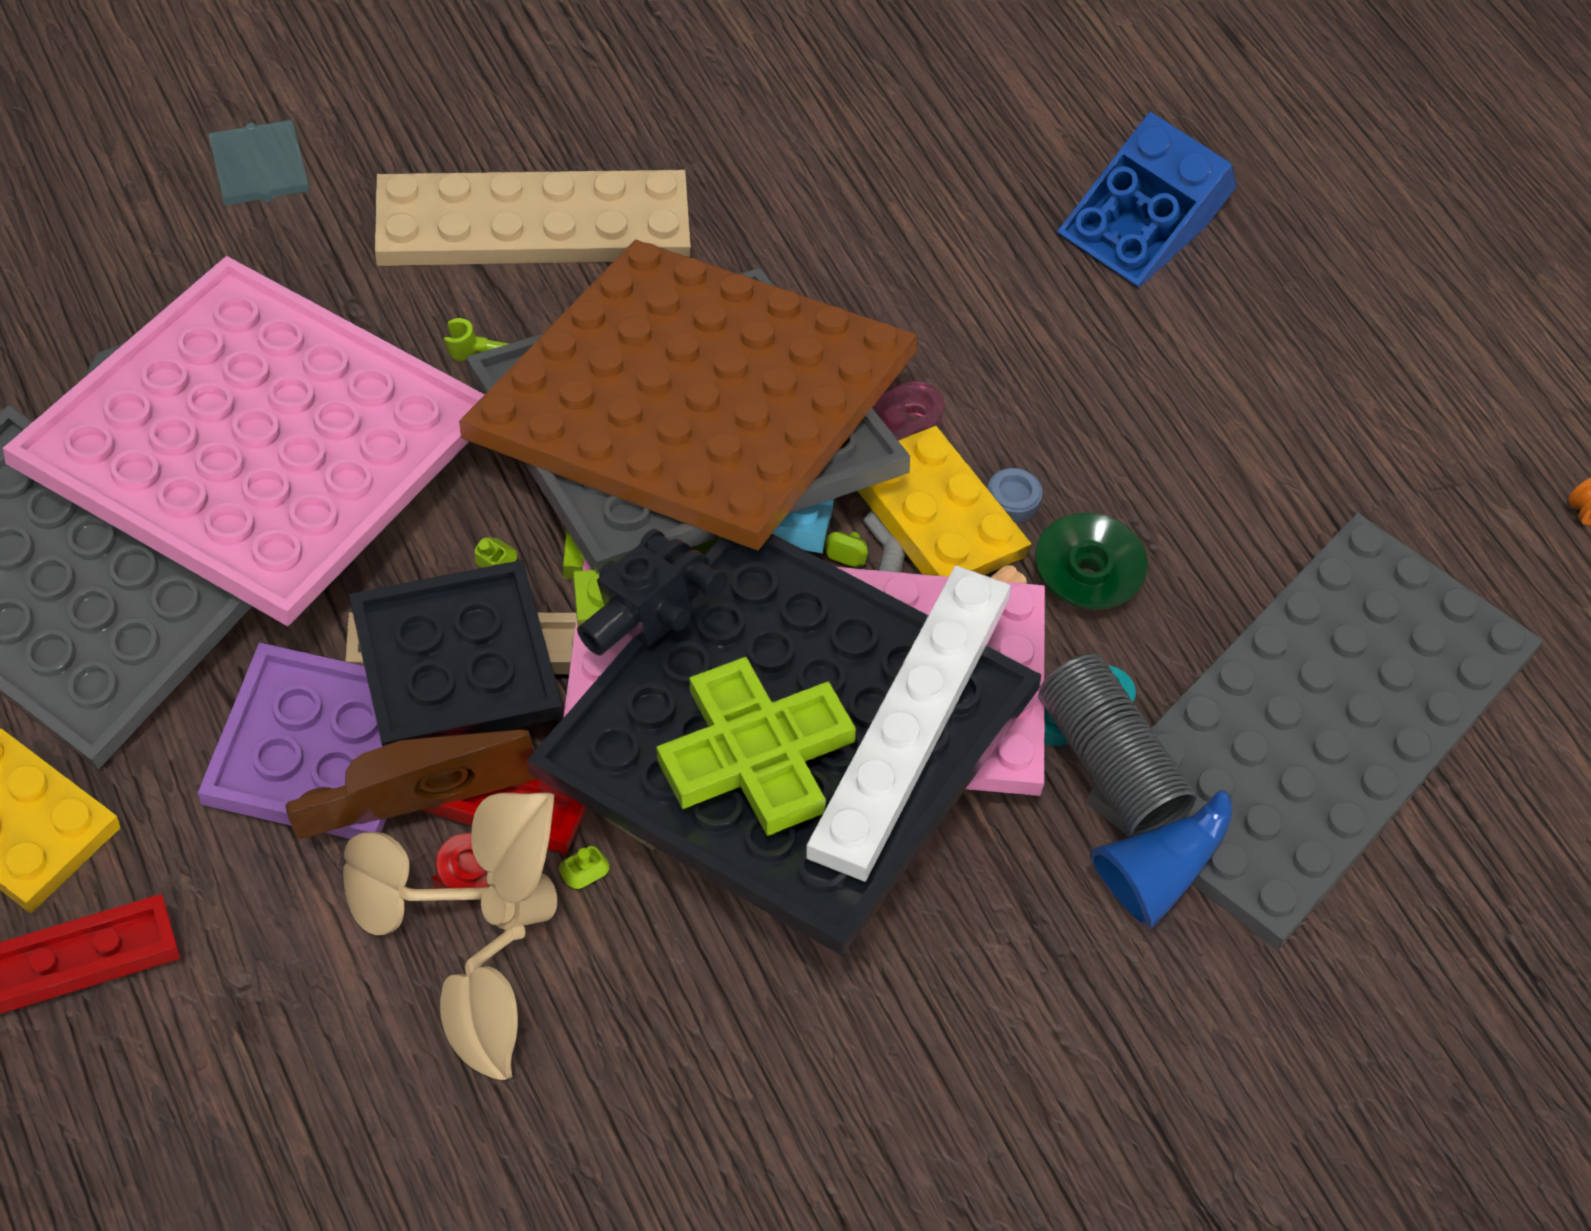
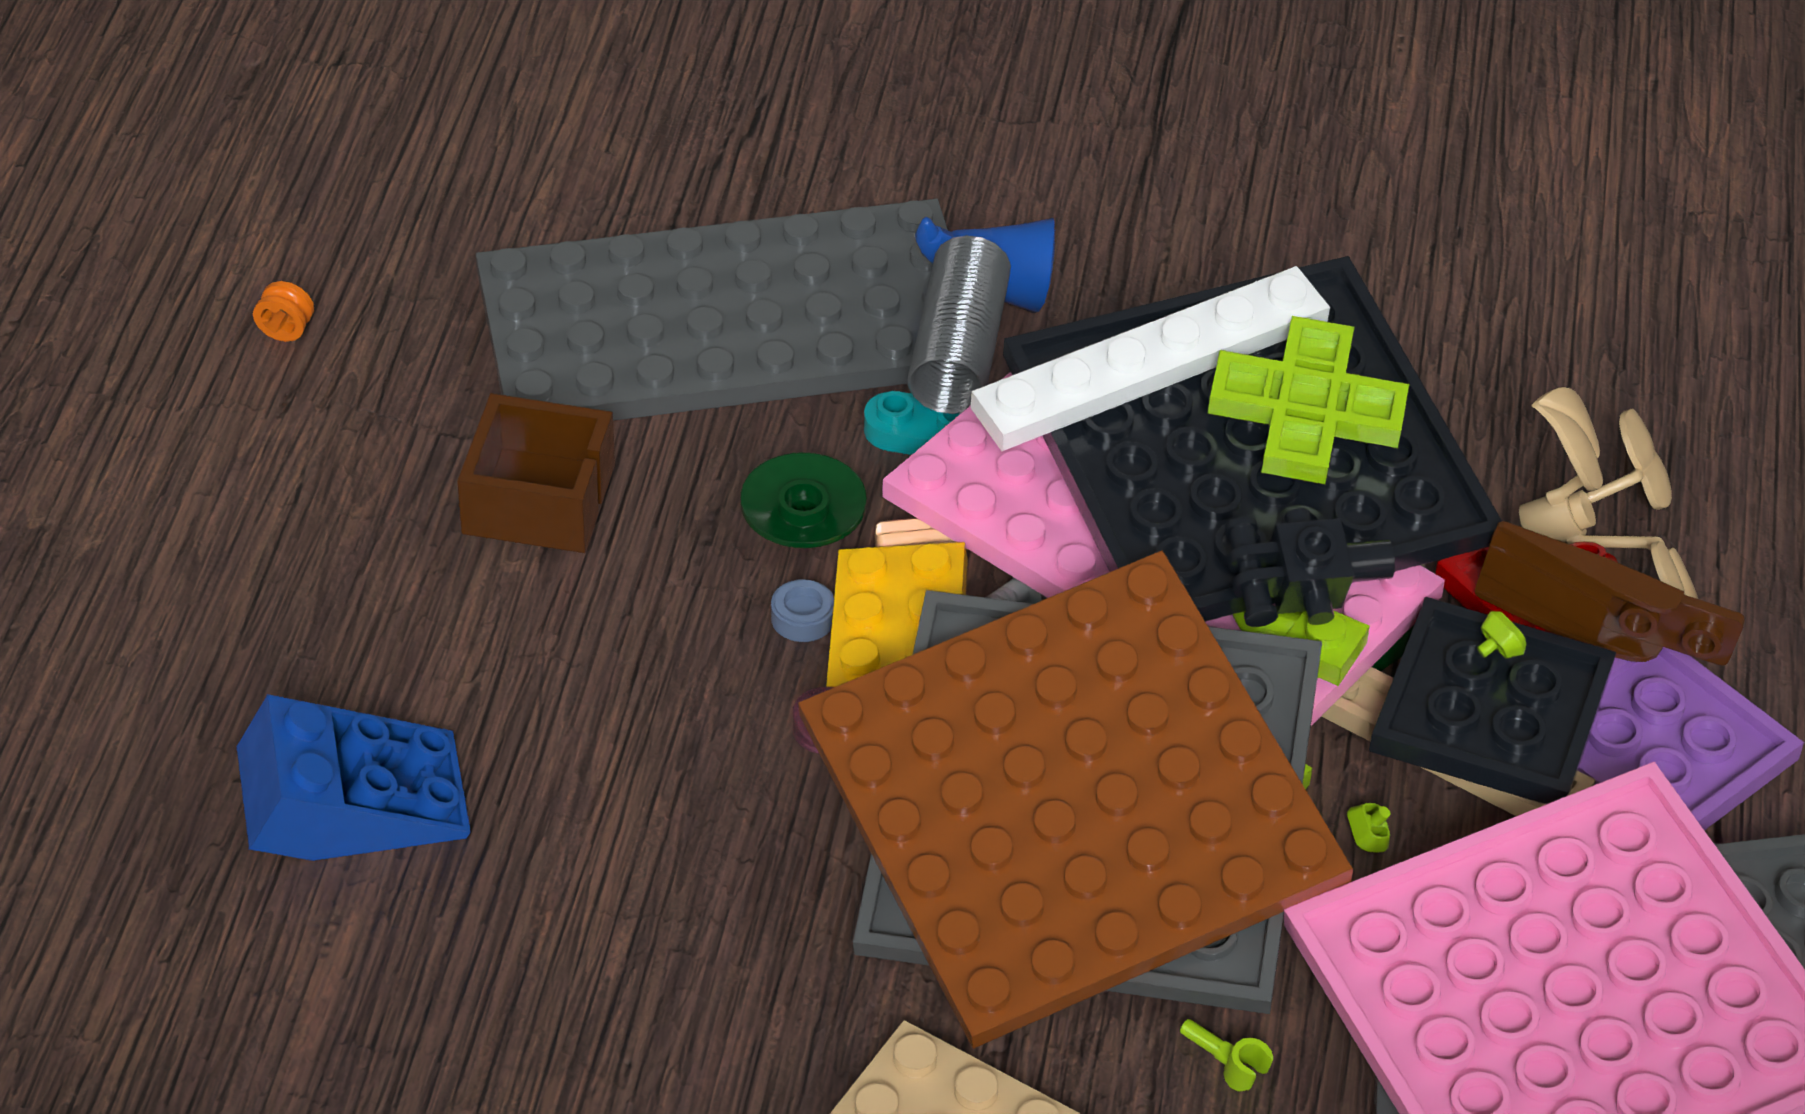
camera: 140 degrees left, 10 degrees down
(474, 685) = (1501, 635): none -> lime rock
(1275, 450) = (536, 473): none -> reddish brown piece

